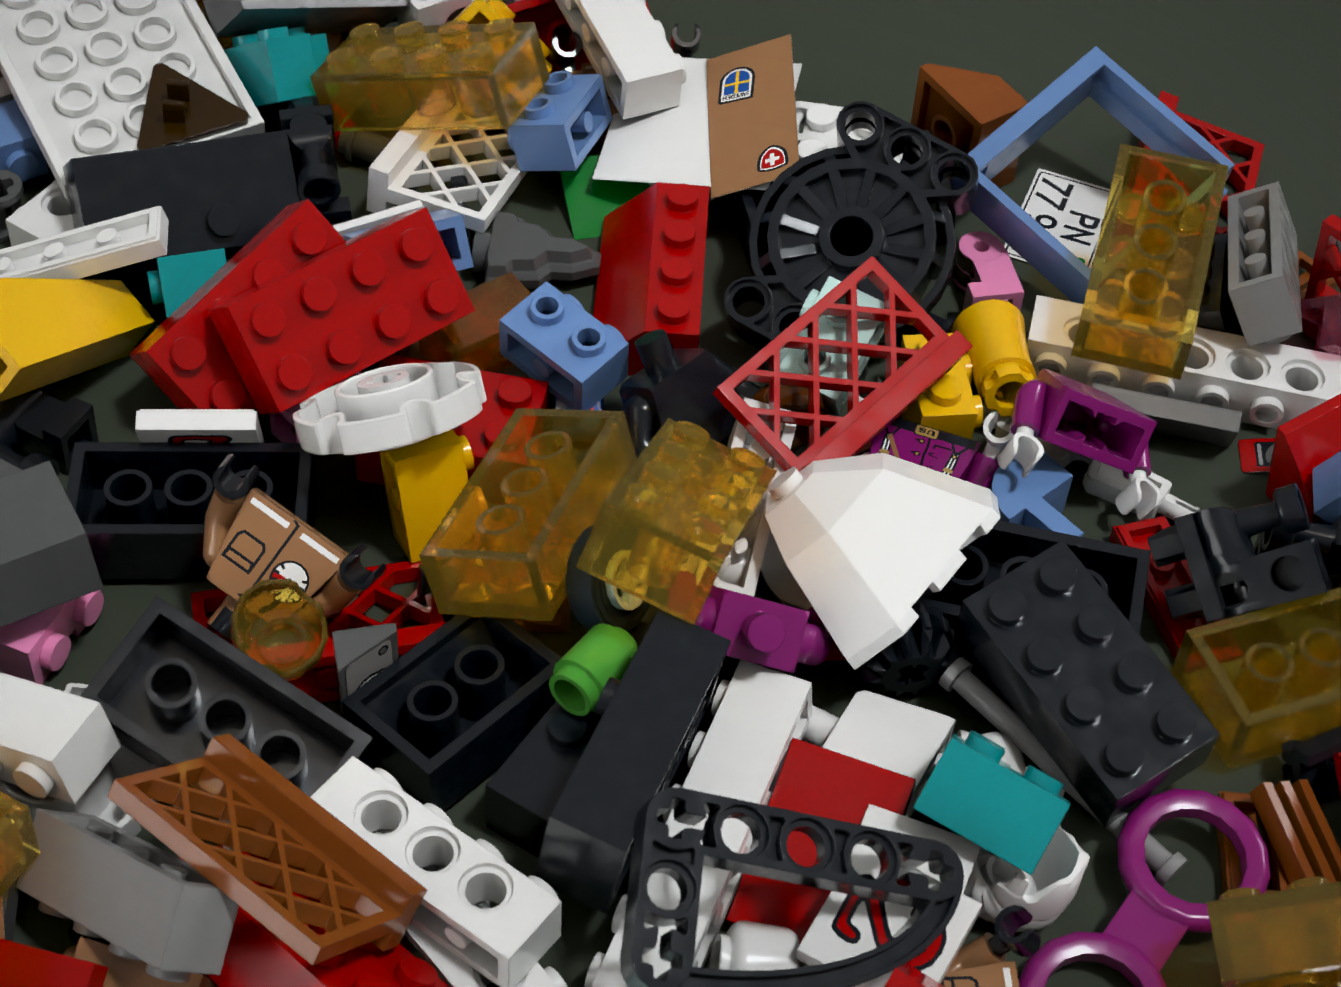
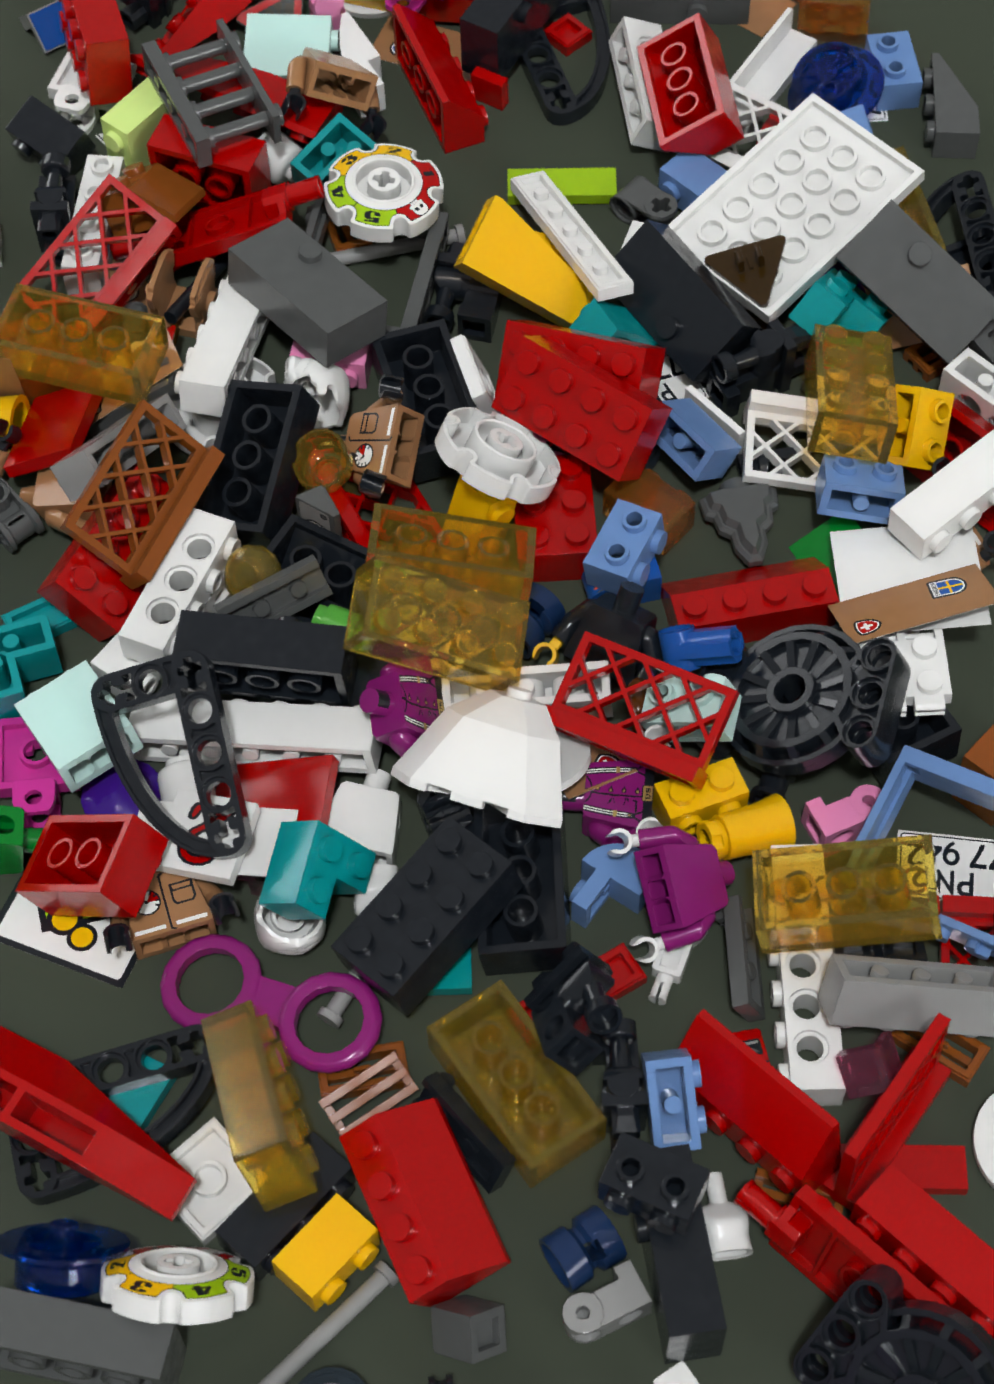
camera: 80 degrees right, 10 degrees up
(91, 631) = (326, 385): none -> white hair
(447, 765) = (249, 566): none -> clear yellow hair
(510, 740) = (280, 593): none -> dark grey hinge
(738, 325) = (699, 647): none -> blue piece

